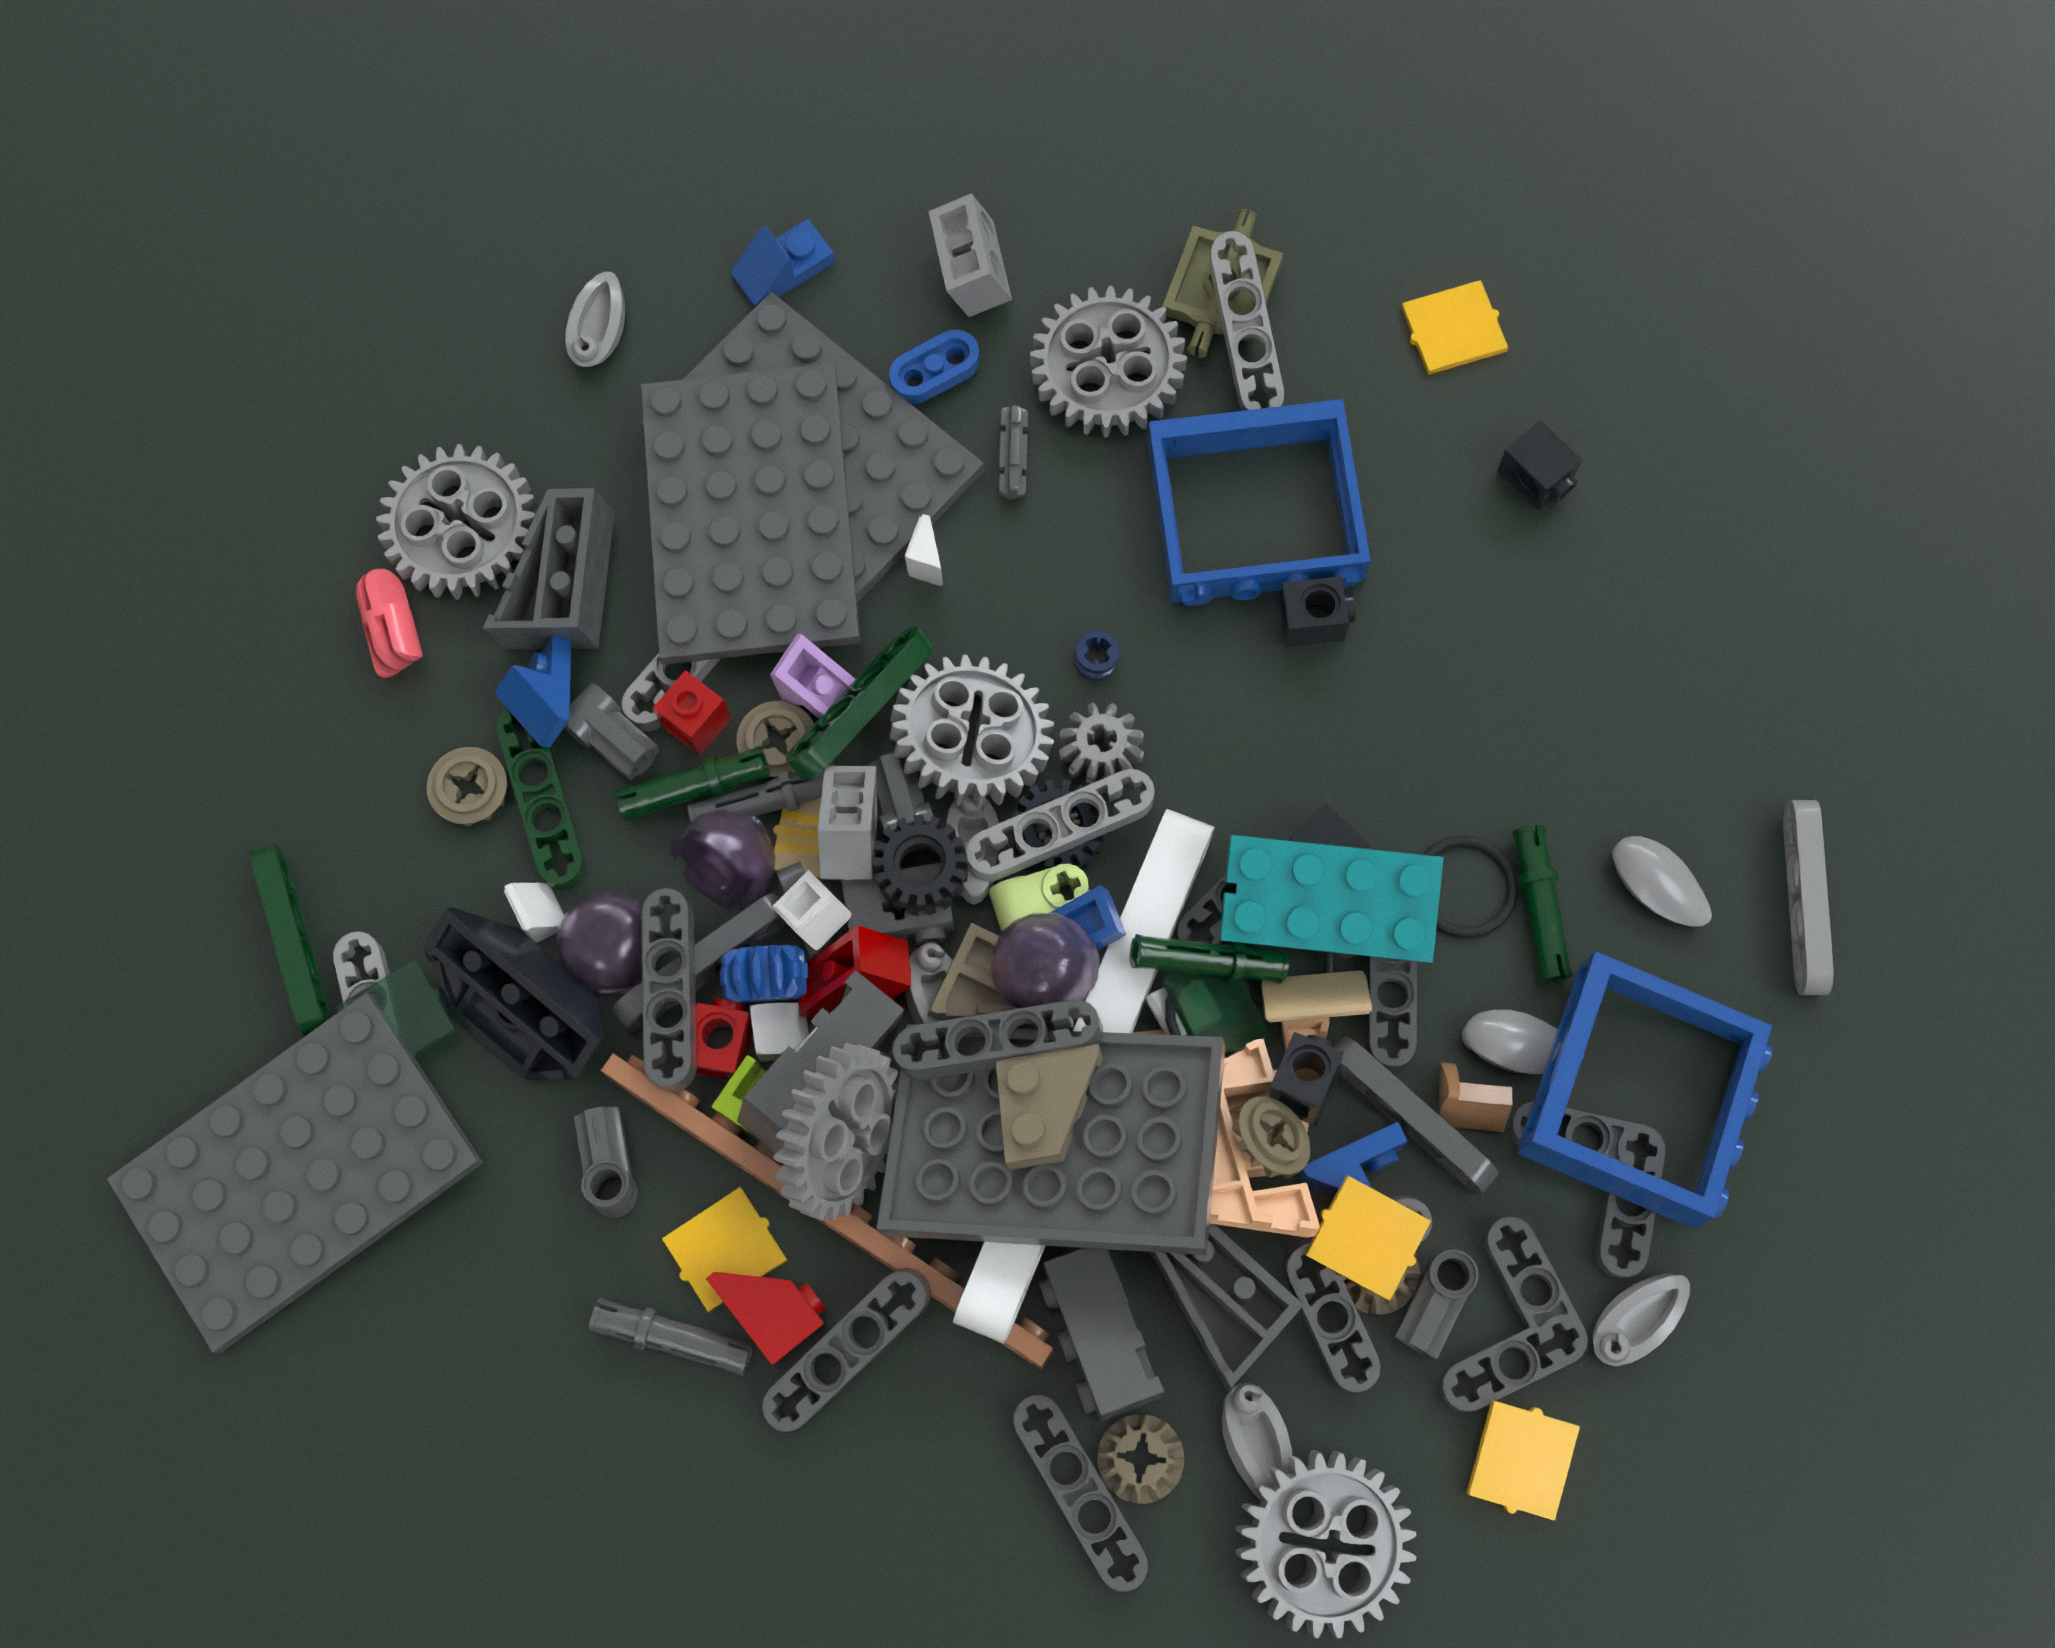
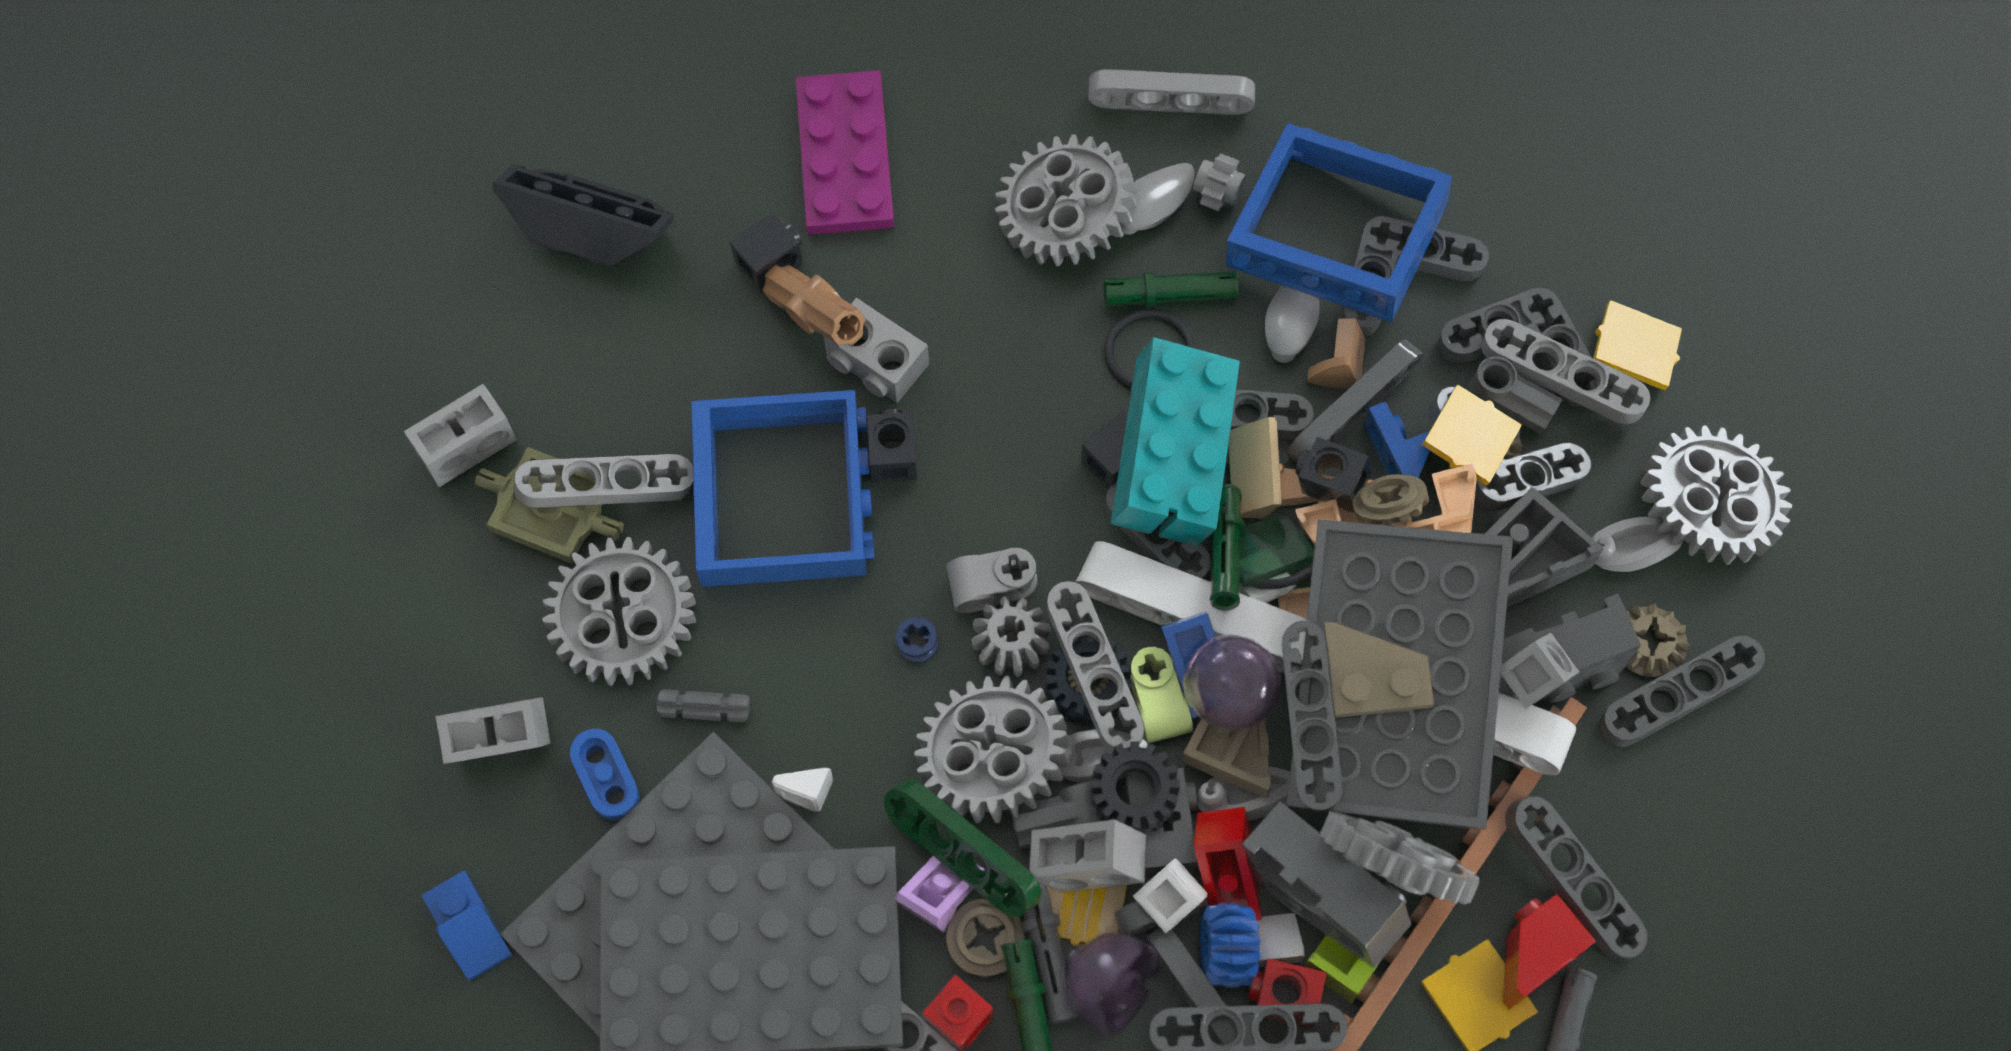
camera: 90 degrees left, 5 degrees down
(1061, 1291) = (1538, 670): none -> light grey brick
(1165, 718) = (987, 578): none -> light grey piece
(1287, 186) = (460, 435): none -> light grey brick
(1434, 590) = (883, 344): none -> light grey brick
(1454, 327) = (615, 314): yellow piece -> none
(1467, 509) = (814, 305): none -> medium nougat piece
(1478, 1364) = (1567, 365): none -> light grey beam
(1566, 270) = (580, 214): none -> black wedge
(1640, 1318) = (1520, 248): light grey arm -> none
(1642, 779) = (1066, 200): none -> light grey gear
(1683, 540) = (844, 152): none -> magenta plate
(1687, 953) = (1219, 182): none -> light grey gear

